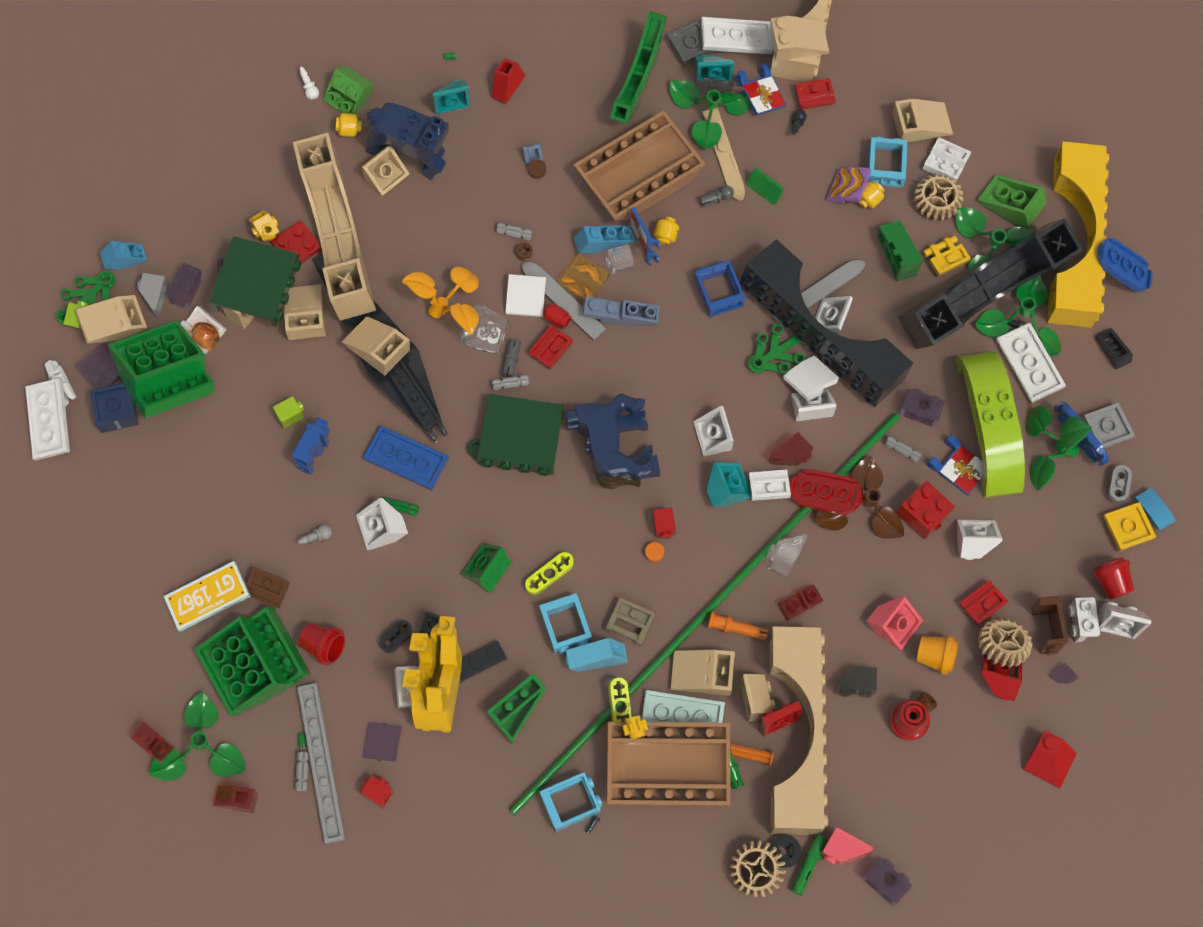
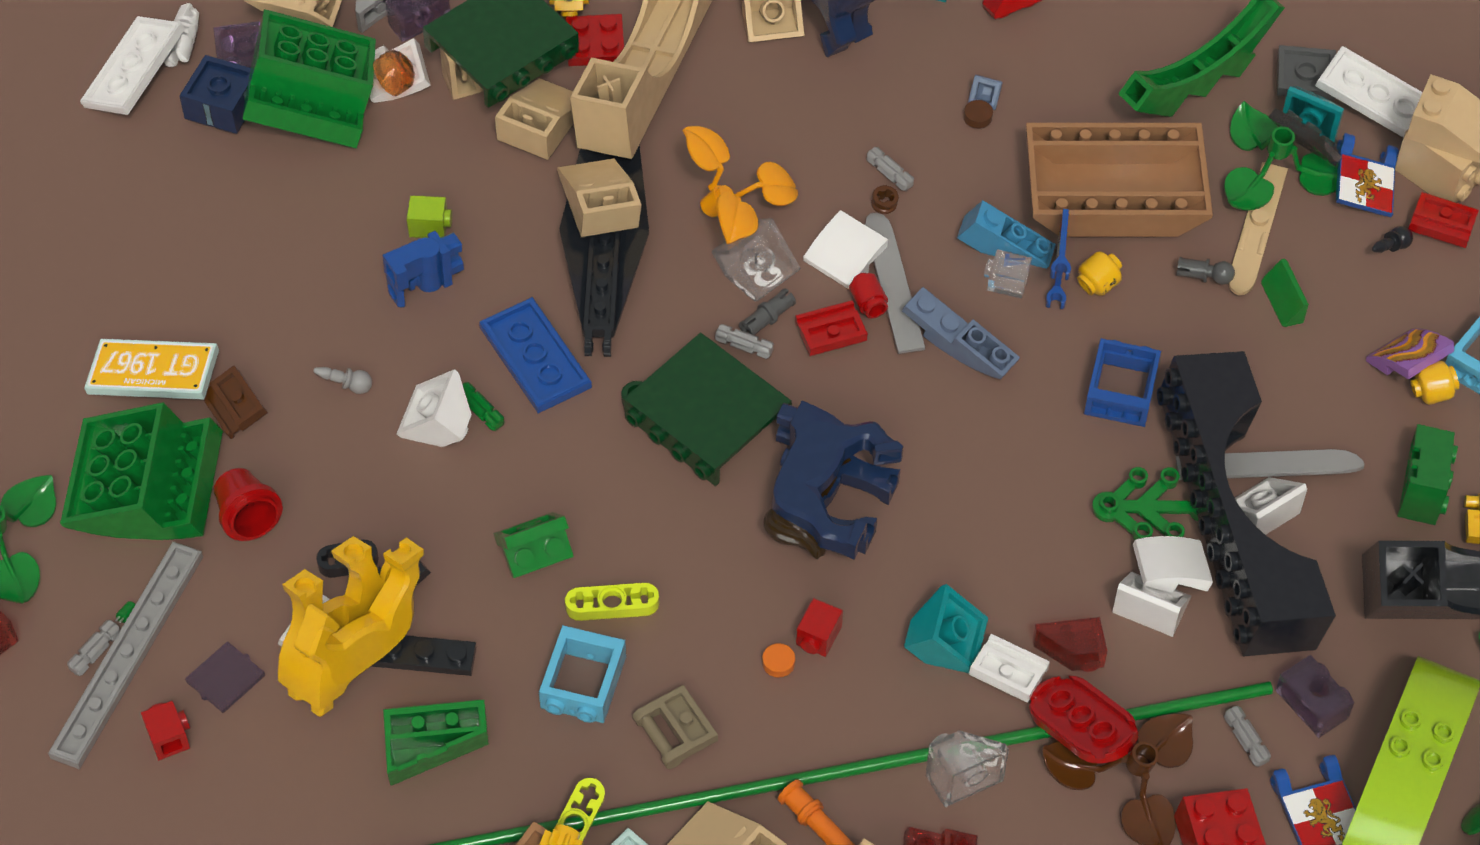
camera: 35 degrees right, 15 degrees down
(583, 277) = (943, 271): clear yellow slope -> none
(596, 655) = (594, 738): medium azure slope -> none
(714, 432) = (979, 555): white slope -> none

